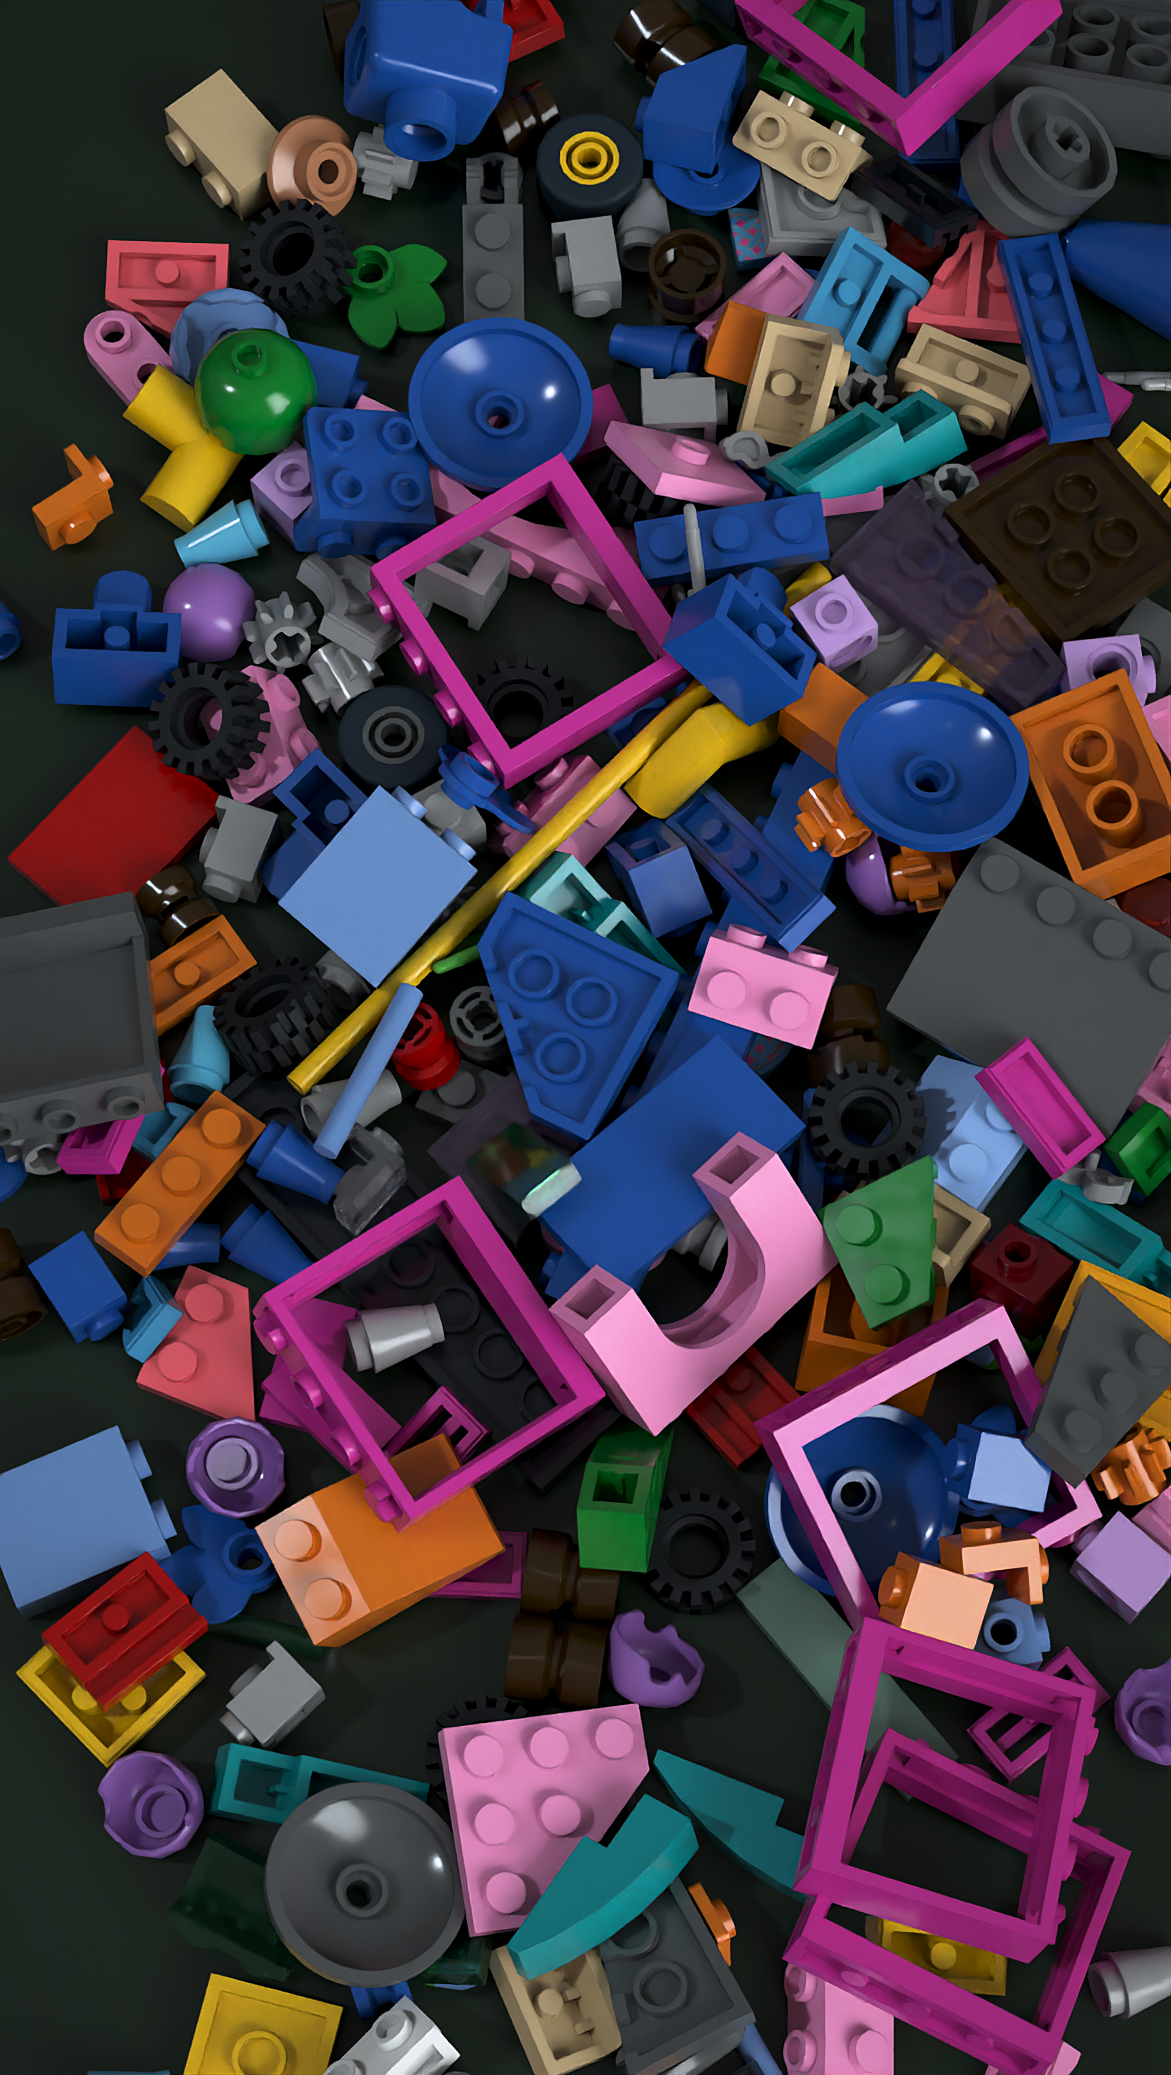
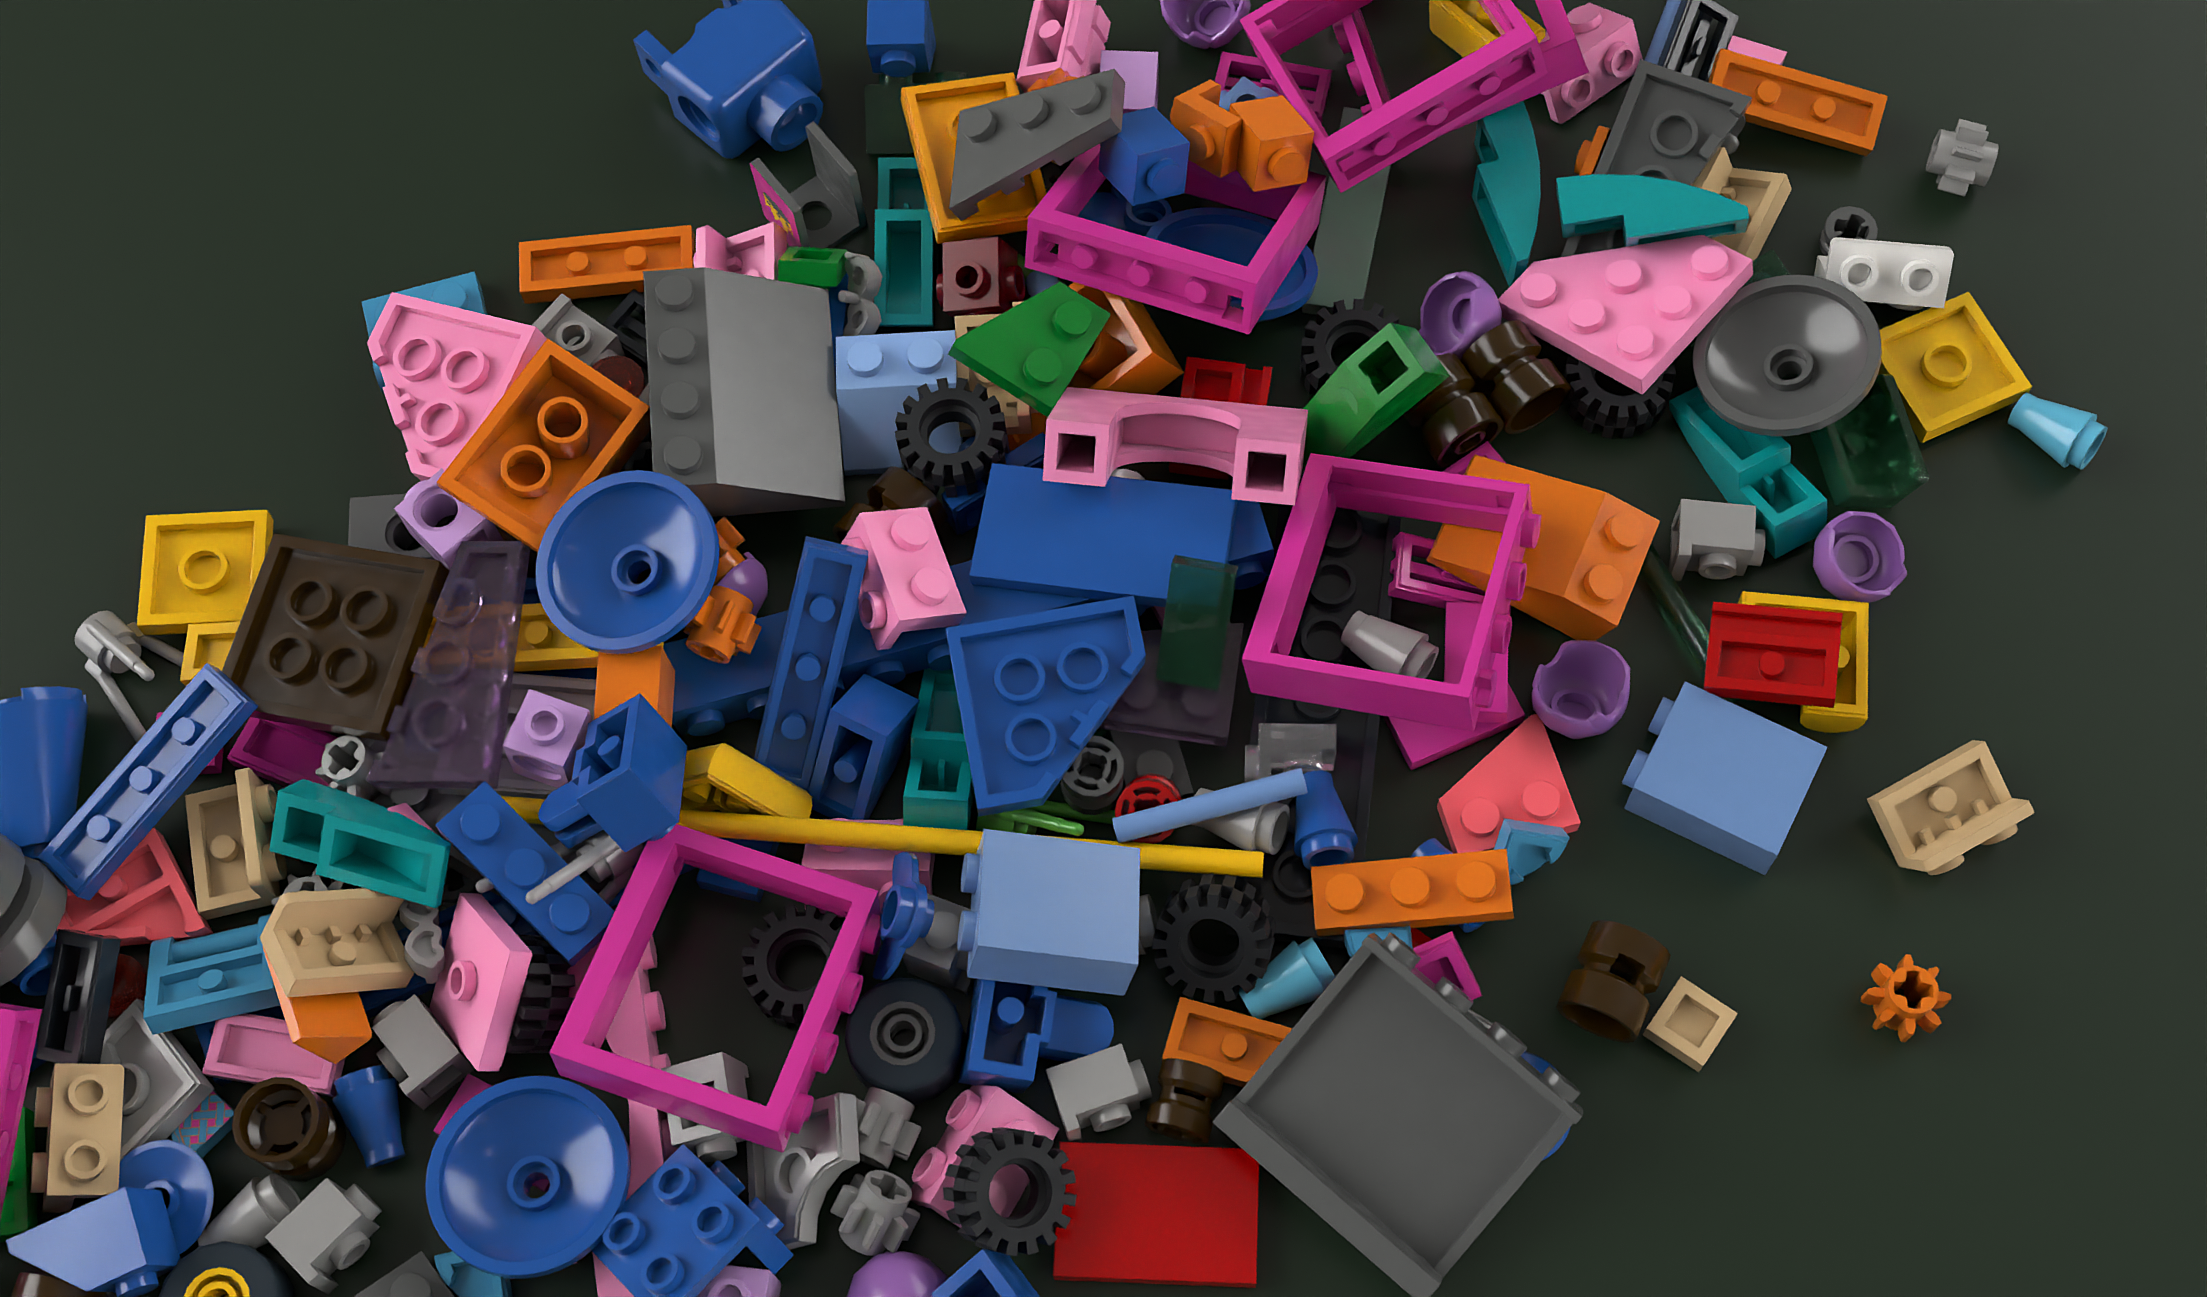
camera: 125 degrees left, 5 degrees down
(81, 1289) = (1551, 917): blue brick -> none
(211, 1564) = (1664, 657): blue plate -> none
(264, 1246) = (1397, 811): blue cone -> none
(1040, 1108) = (843, 333): dark pink tile -> none

